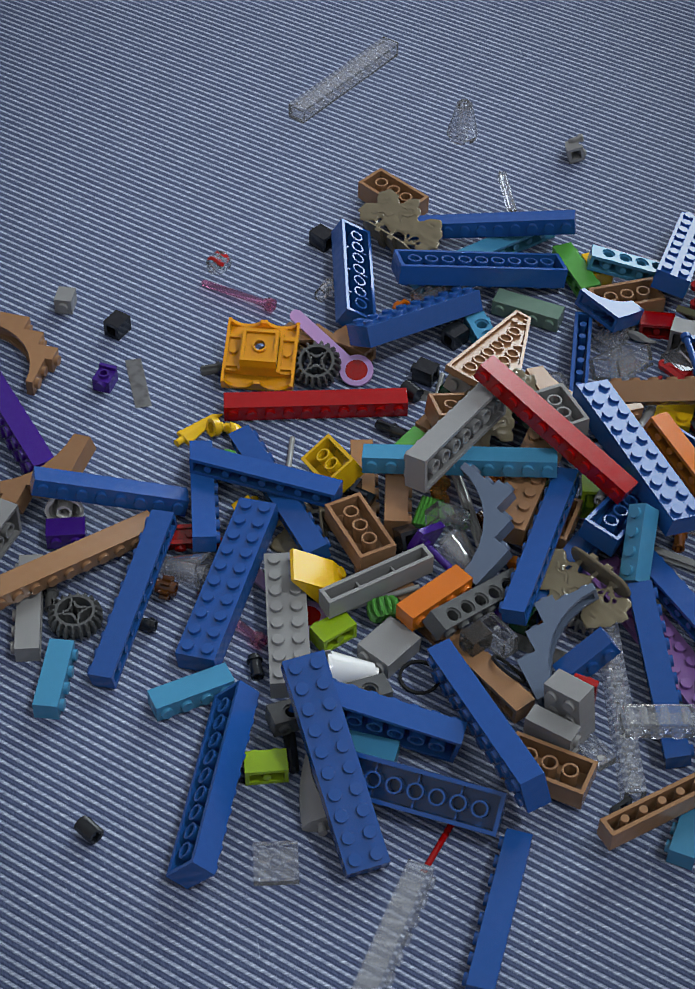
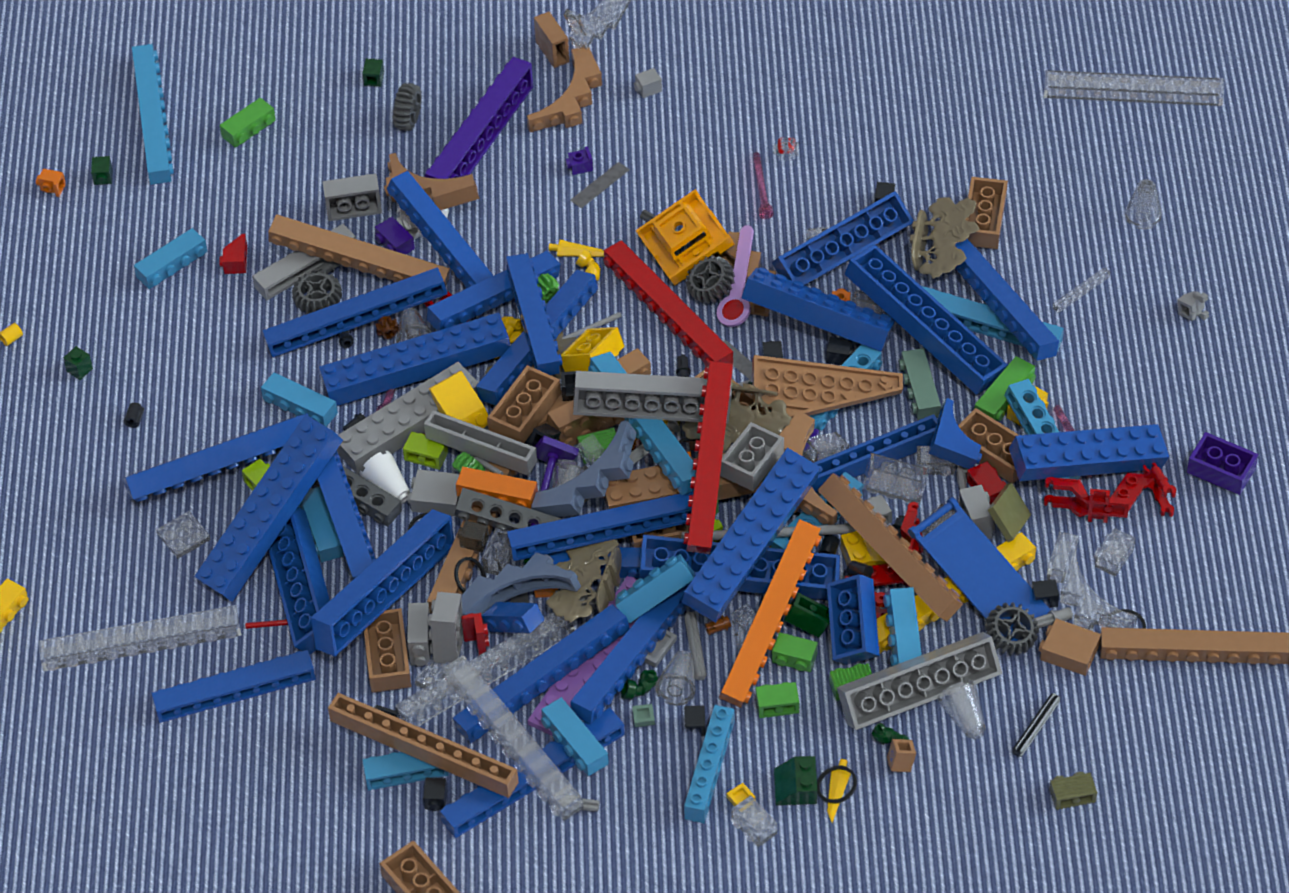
camera: 60 degrees right, 5 degrees up
(54, 679) = (249, 316): dark azure brick -> none
(117, 325) = (649, 131): black brick -> none
(414, 392) = (741, 358): black piece -> none

